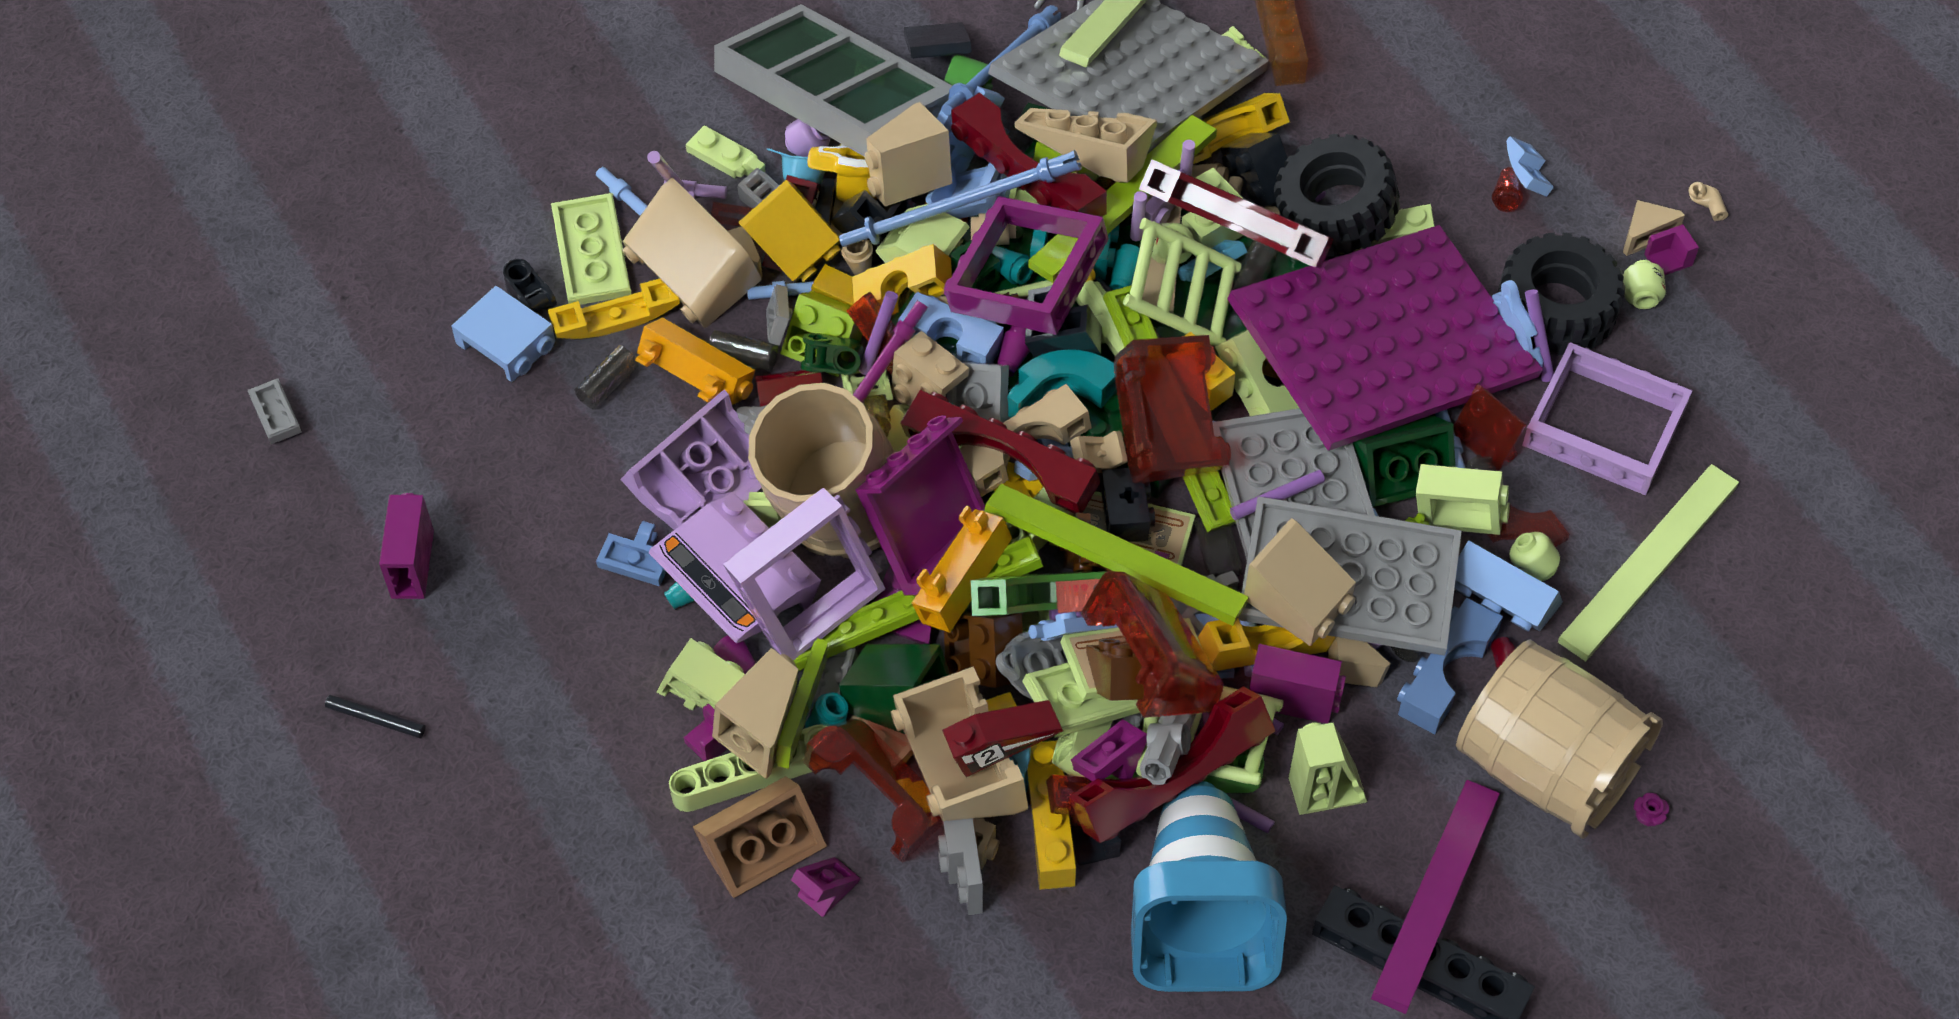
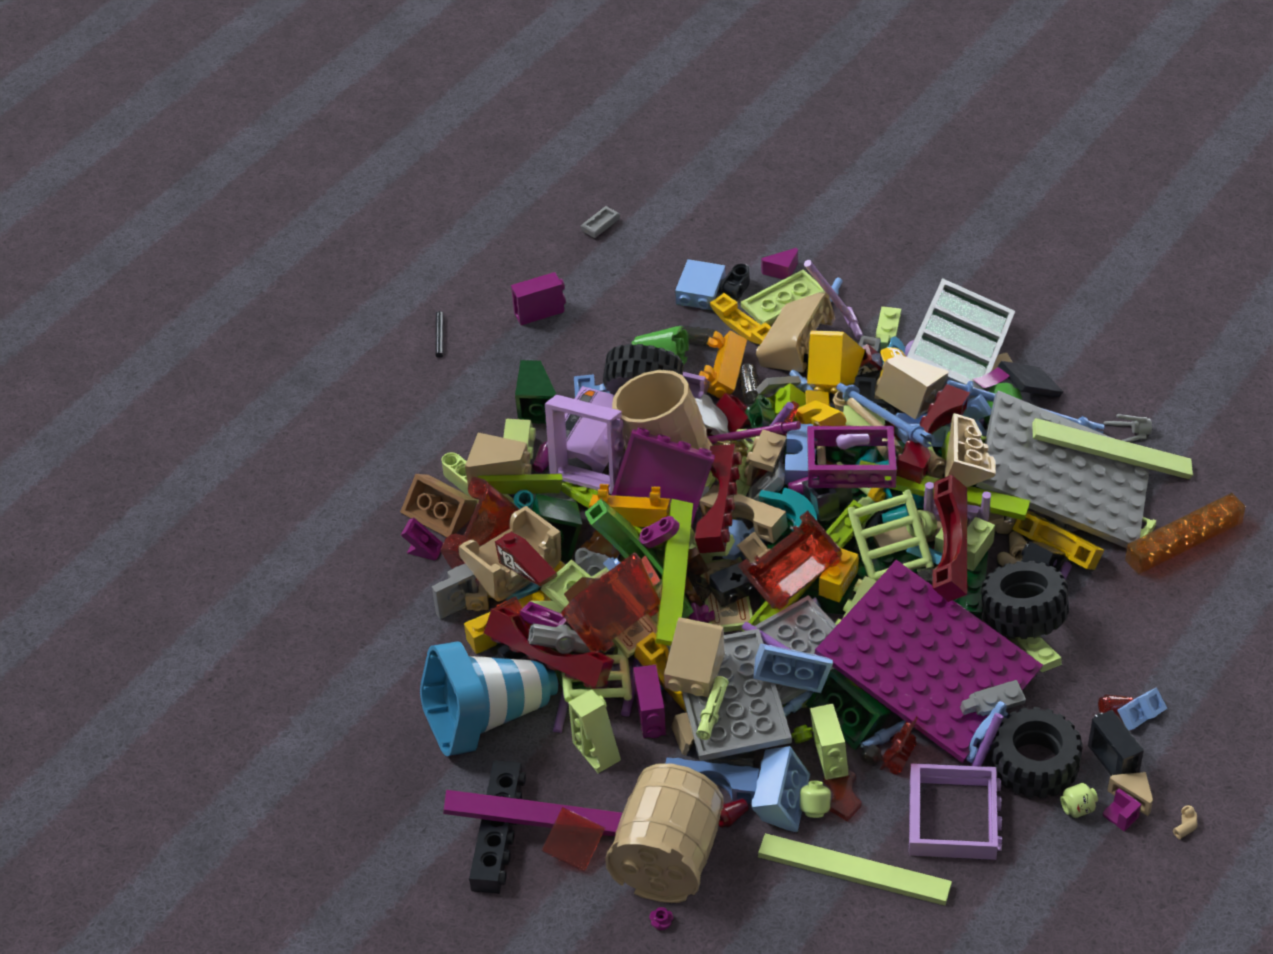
camera: 70 degrees right, 10 degrees down
(529, 224) = (780, 264): none -> magenta slope
(608, 425) = (670, 339): none -> bright green cone
(613, 619) = (533, 391): none -> dark green slope
(703, 452) = (633, 360): none -> black tyre
(935, 69) = (991, 378): none -> sticker
(939, 225) = (863, 412): none -> tan bar
(1018, 247) = (851, 440): none -> lavender arm
(1040, 543) = (659, 532): none -> magenta plate
(1354, 478) = (791, 668): none -> light blue slope
(1393, 607) = (709, 715): none -> yellowish green pin
(1480, 293) = (985, 700): none -> light grey hinge
(1492, 866) = (573, 839): none -> clear red tile
(1590, 196) = (1114, 745): none -> black window

